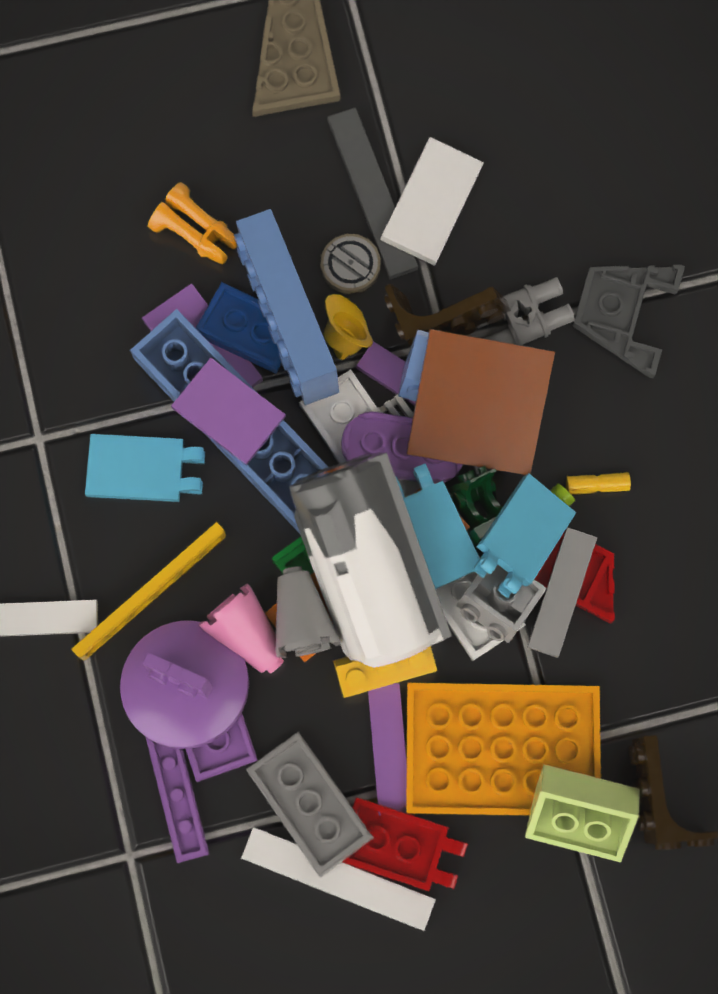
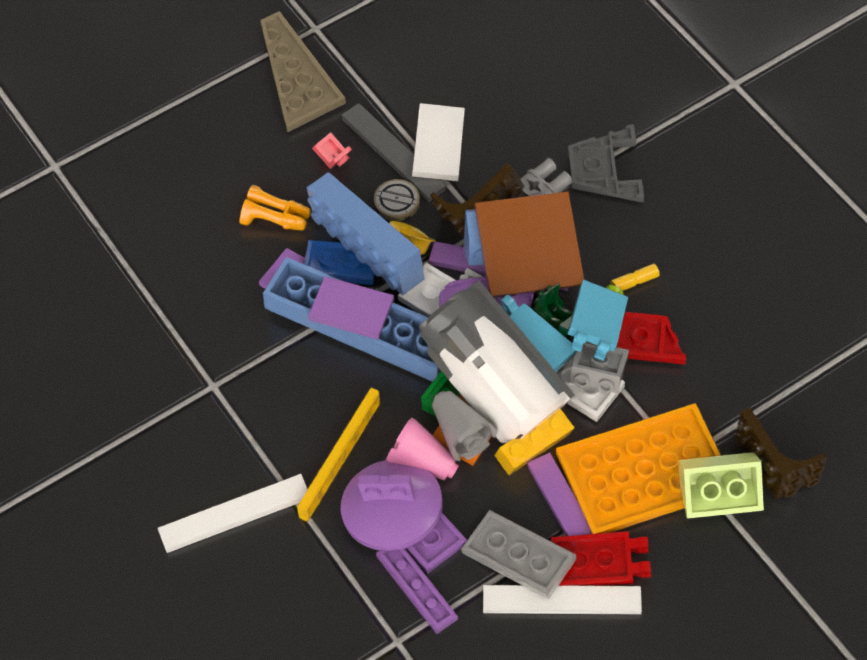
camera: 15 degrees left, 20 degrees down
(140, 468) = (299, 377): medium azure tile -> none
(296, 166) = (331, 151): none -> coral bracket
(562, 592) = (641, 351): light grey tile -> none

